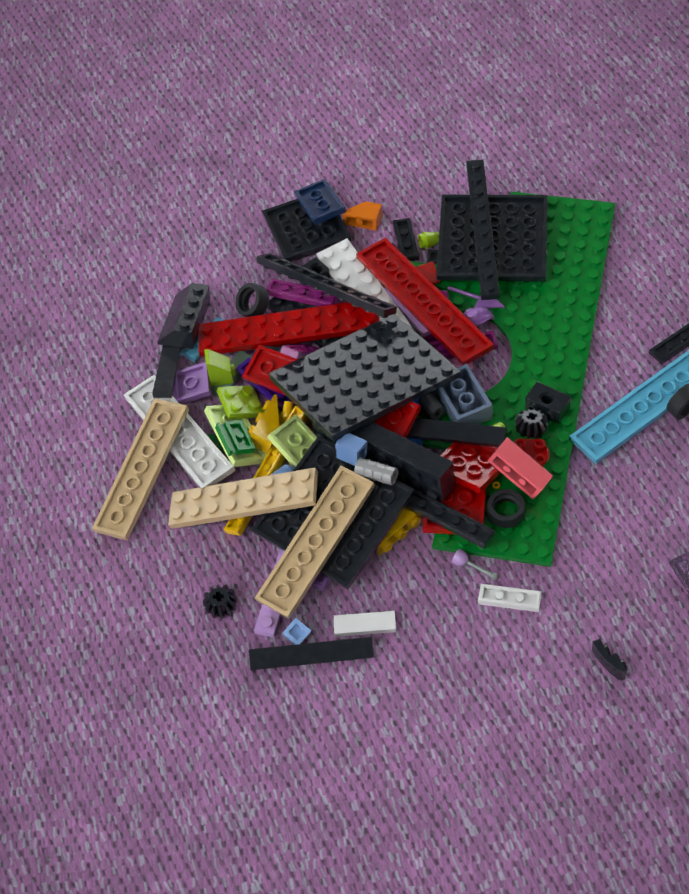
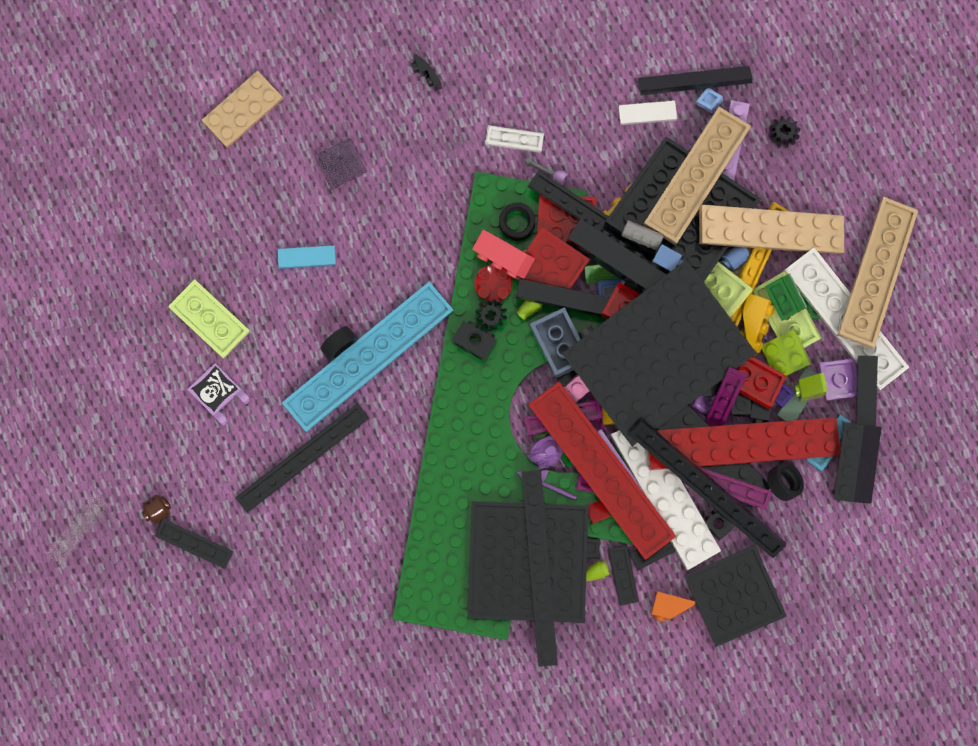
camera: 170 degrees right, 25 degrees up
(320, 201) = (721, 620): dark blue tile -> none

